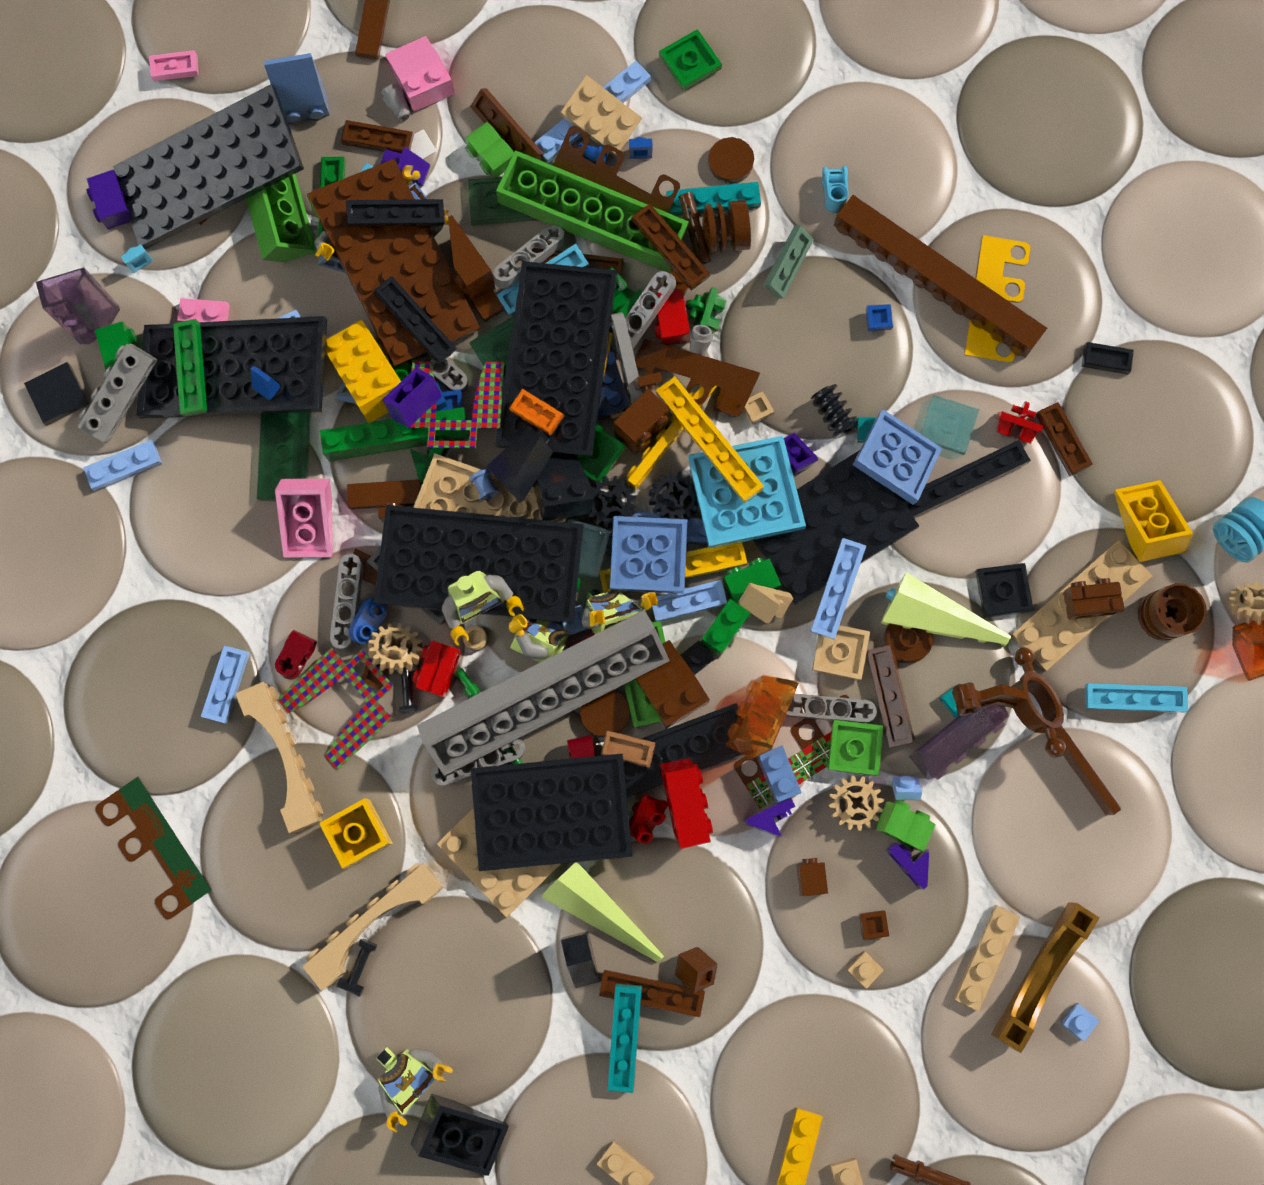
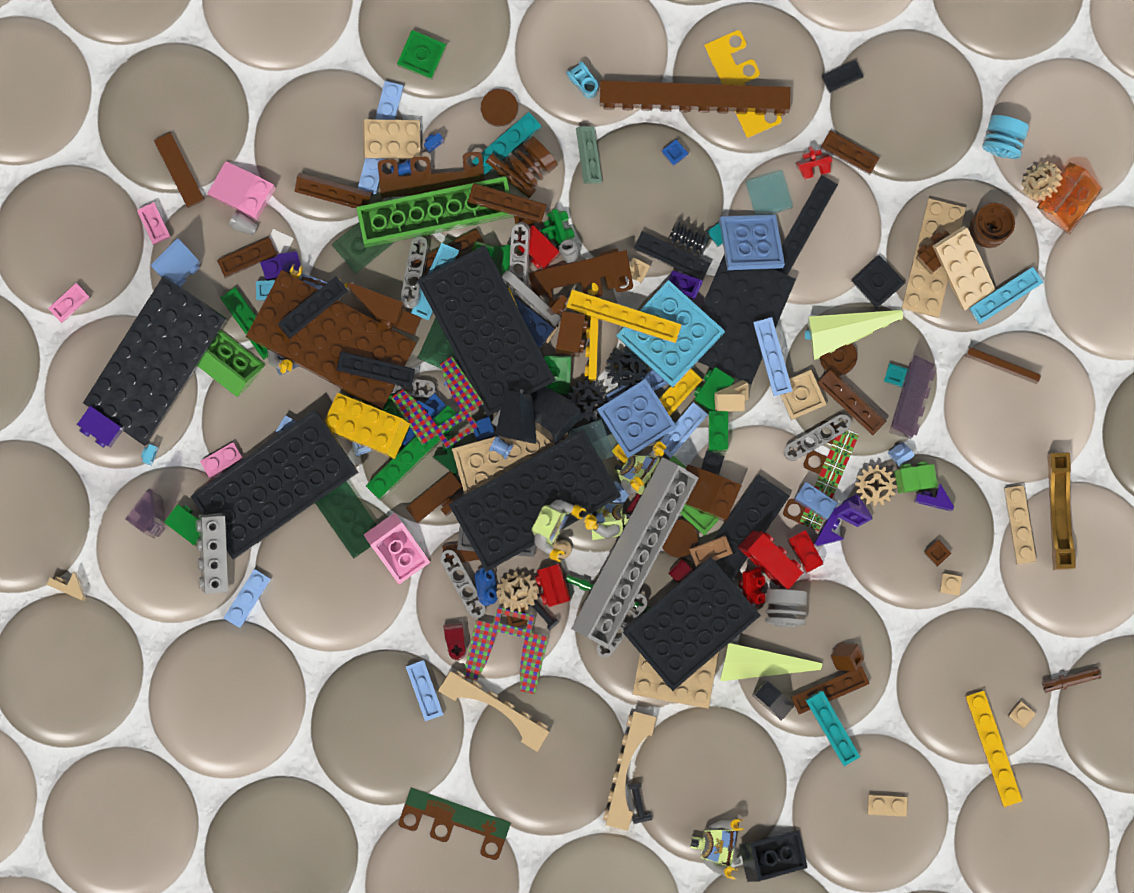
camera: 35 degrees left, 5 degrees up
(56, 393) = (165, 582): black tile -> none
(190, 367) = (249, 503): green plate -> none
(263, 383) = (309, 481): blue slope -> none
(313, 41) = (153, 223): none -> bright pink plate
(356, 833) = (578, 722): yellow brick -> none
(412, 397) = (415, 423): dark purple brick -> none
(482, 456) = (484, 429): none -> blue plate
(489, 150) = (332, 214): bright green brick -> none
(536, 412) = (501, 376): orange plate -> none
(666, 867) = (786, 607): none -> light grey wheel
(730, 821) = (805, 551): none -> red brick
(761, 715) = (780, 472): clear orange slope -> none
(803, 417) = (672, 256): none -> black plate
(812, 814) = (853, 511): none -> dark purple slope
(812, 877) = (880, 551): reddish brown brick -> none
(855, 748) = (852, 450): bright green plate -> none
(1017, 697) = (902, 374): reddish brown piece -> none
(1080, 1022) = (1101, 524): light blue plate -> none
(1111, 635) = (964, 268): none -> tan plate
(1152, 521) = (941, 170): yellow slope -> none

